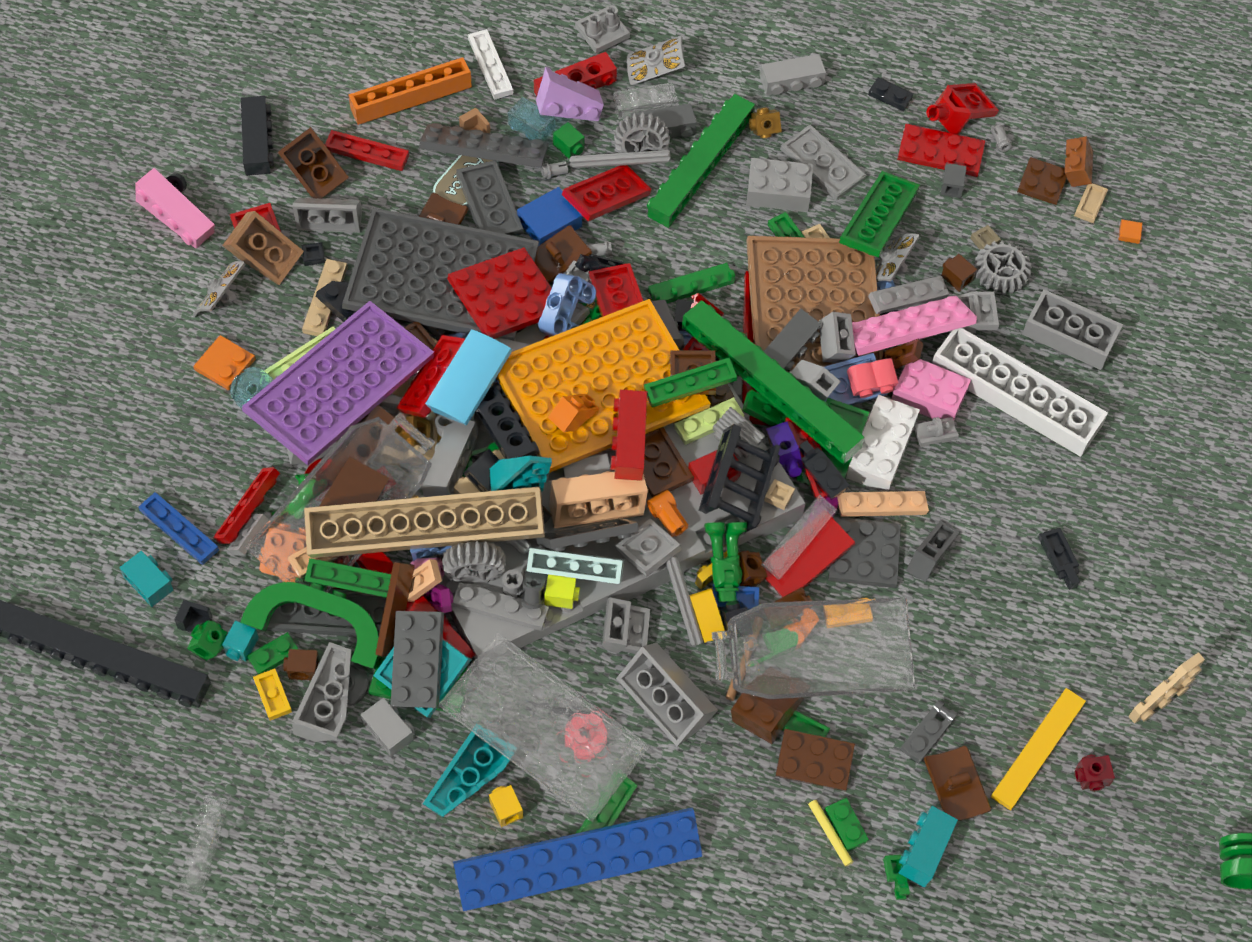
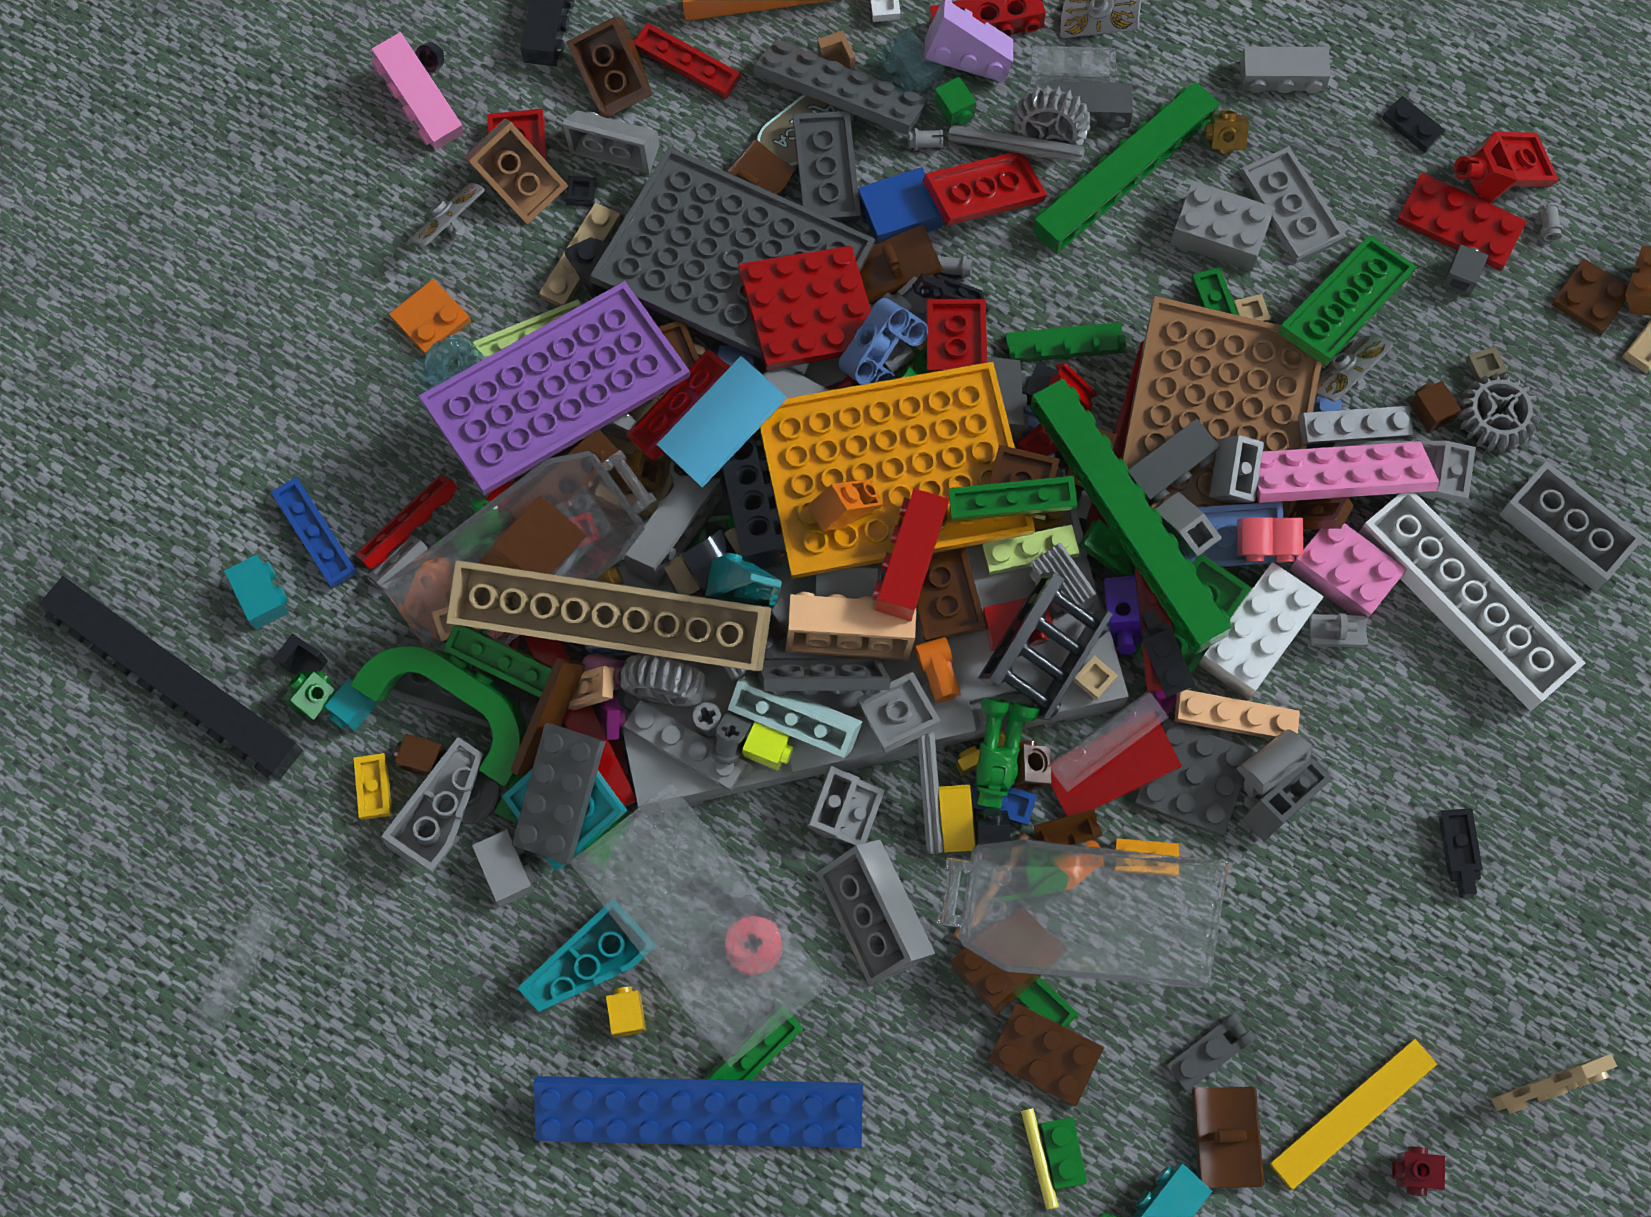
camera: 20 degrees right, 10 degrees up
(271, 654) = (388, 731): green plate -> none
(917, 526) = (1274, 762): none -> light grey brick

